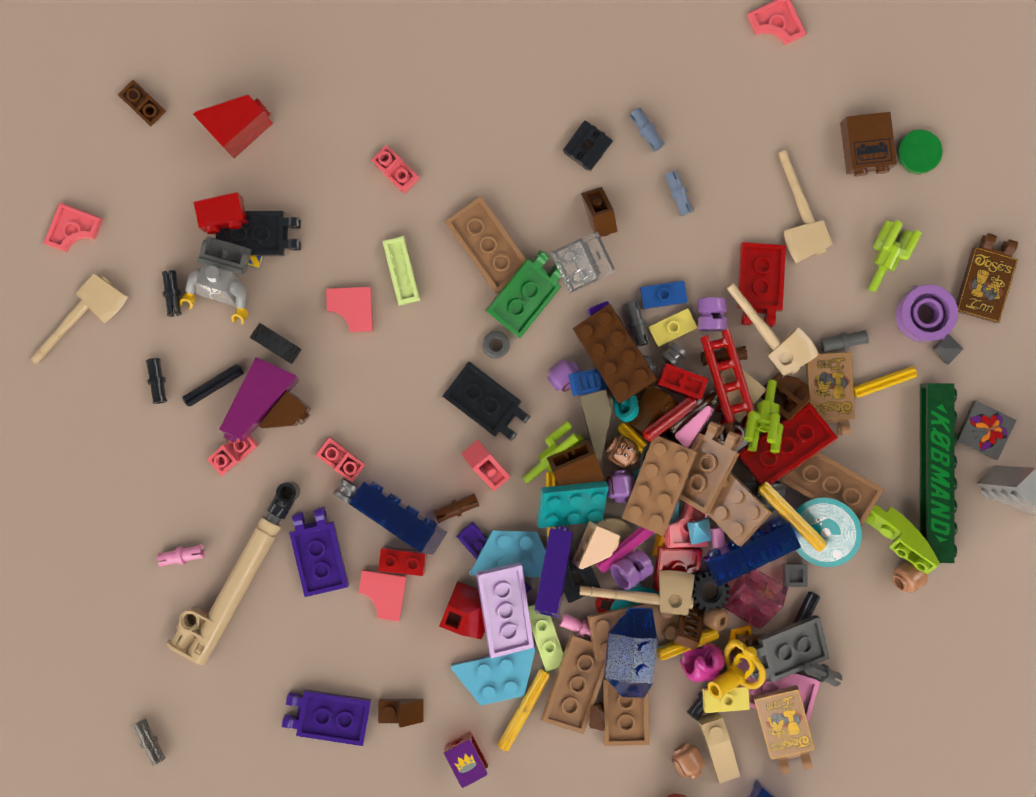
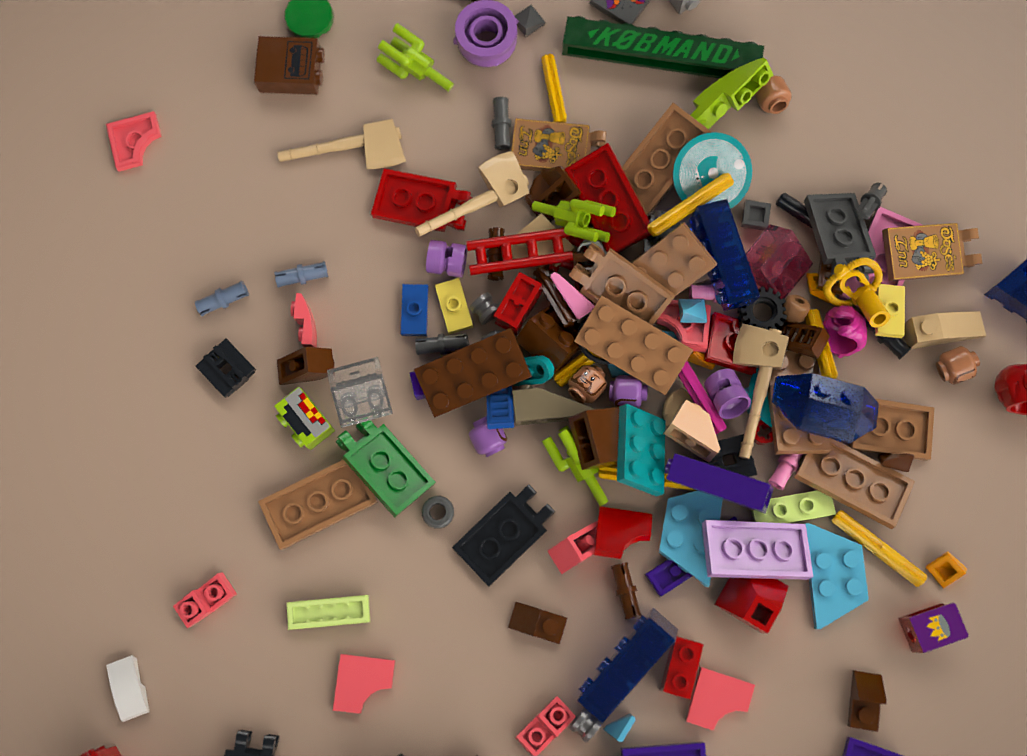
camera: 70 degrees left, 10 degrees down
(316, 122) = (127, 689): none -> white slope
(349, 519) = (620, 727): none -> medium azure slope
(420, 440) = (537, 622): none -> reddish brown slope
(504, 495) = (619, 530): none -> red tile
(515, 767) = (946, 569): none -> light orange slope
(554, 220) = (304, 419): none -> brick
(643, 201) = (303, 316): none -> coral slope
(669, 418) = (558, 321): red axle -> none

